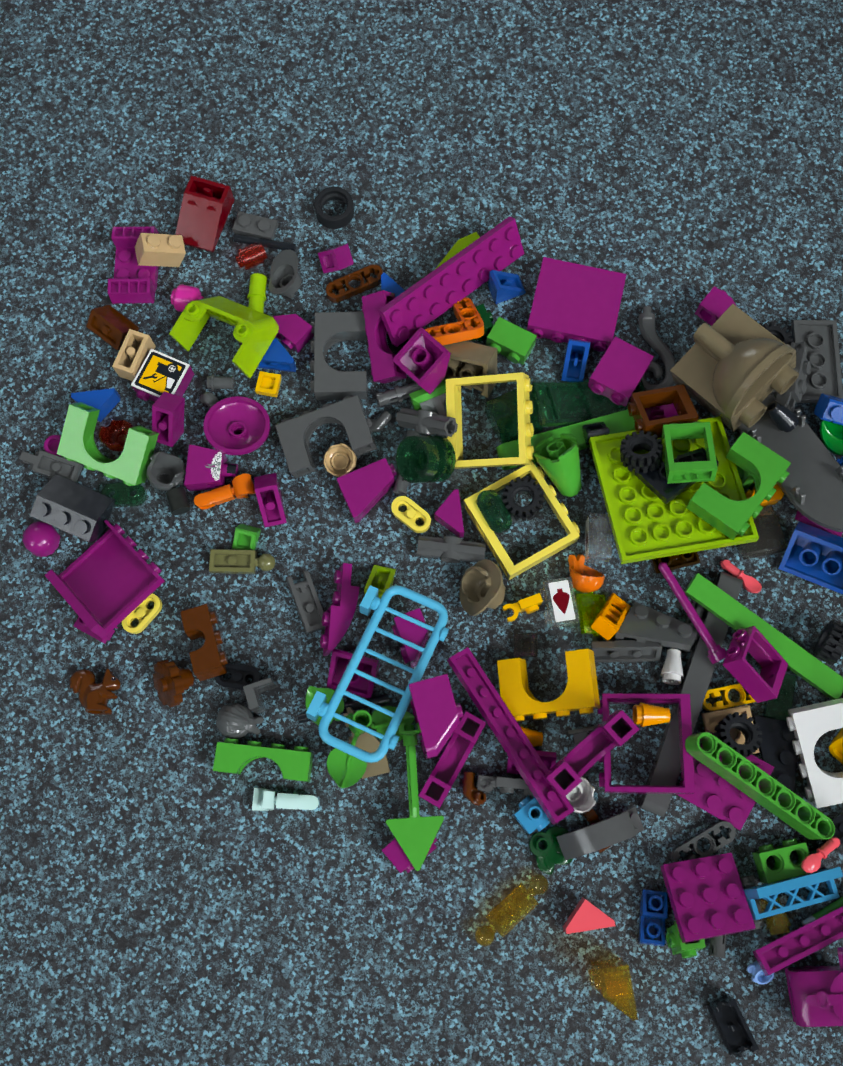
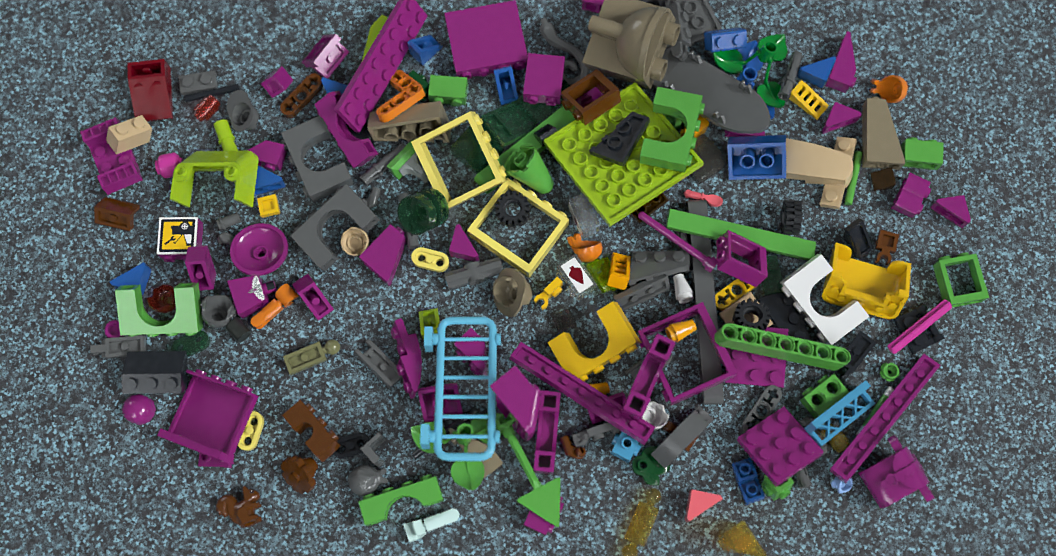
camera: 25 degrees left, 0 degrees up
(132, 354) = (146, 229): tan brick -> none
(245, 537) = (306, 335): bright green slope -> none
(329, 194) = (252, 29): black tyre -> none
(398, 251) = (326, 55): none -> magenta bracket
(424, 360) = (387, 134): magenta slope -> none
(426, 422) = (410, 182): dark grey piece -> none
(494, 511) = (495, 229): clear green plate -> none
(641, 442) = (585, 126): black tyre -> none
(689, 471) = (629, 134): bright green window -> none
(731, 1026) = (837, 531): black hinge -> none
(782, 417) = (684, 63): black cone -> none
(813, 861) = (844, 385): coral piece -> none

